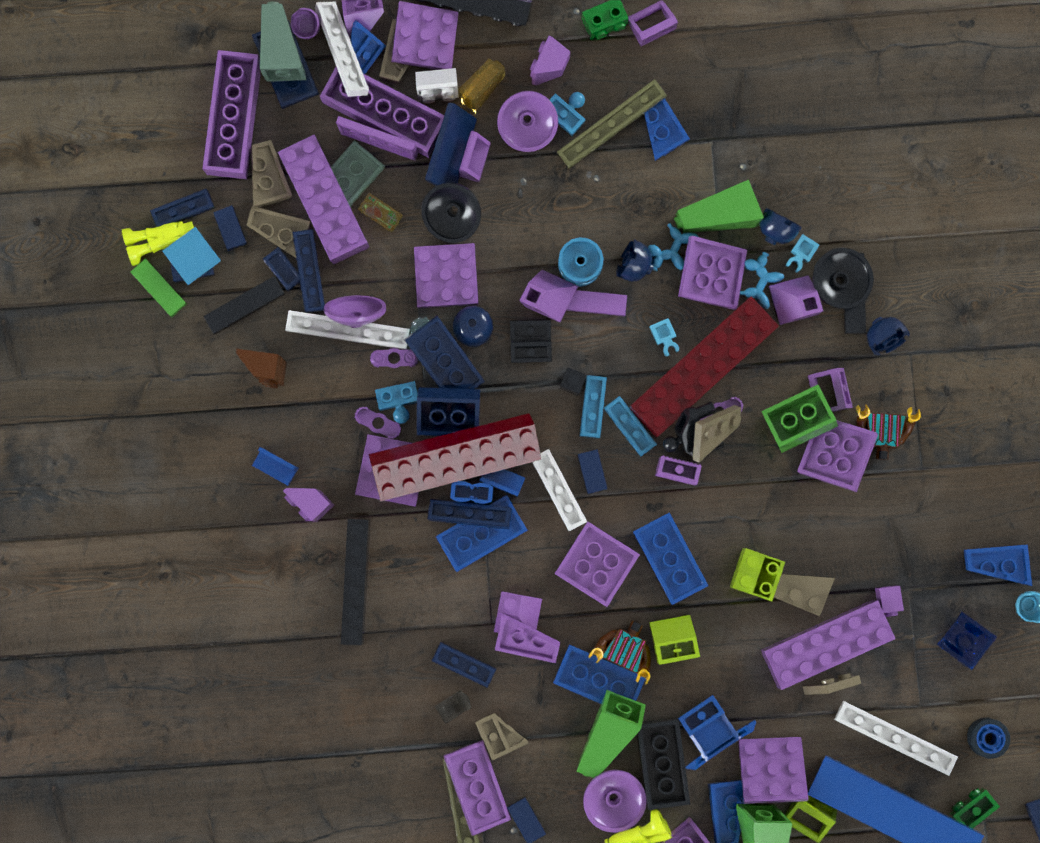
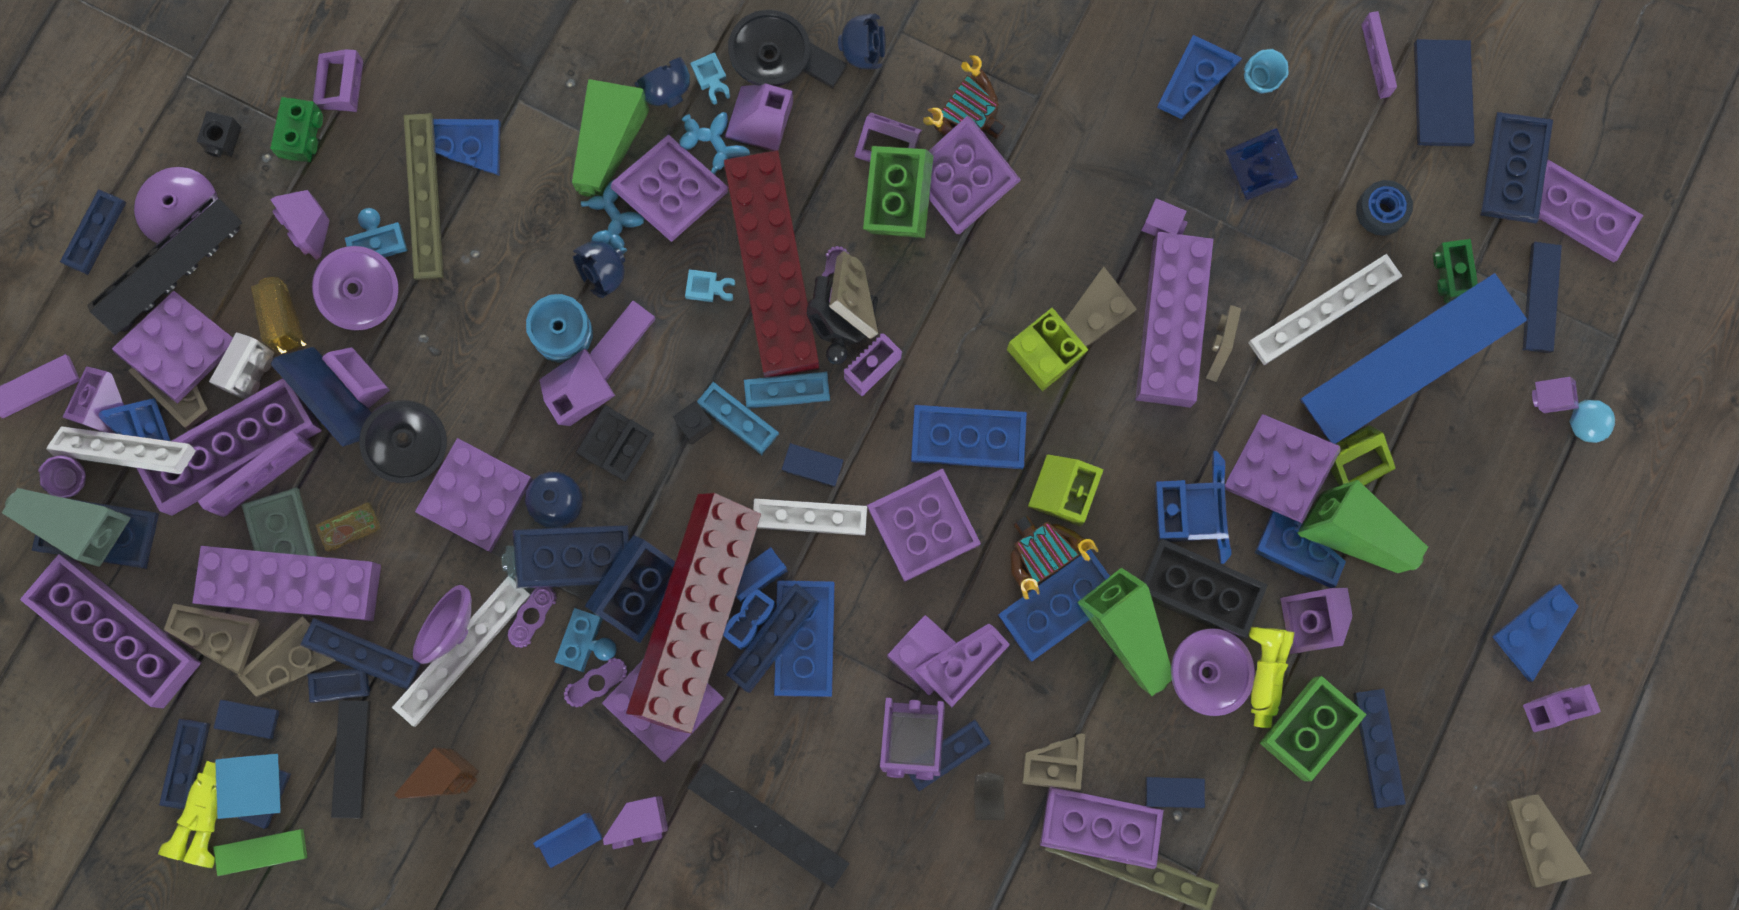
camera: 60 degrees left, 5 degrees down
(460, 638) = (912, 739): none -> window

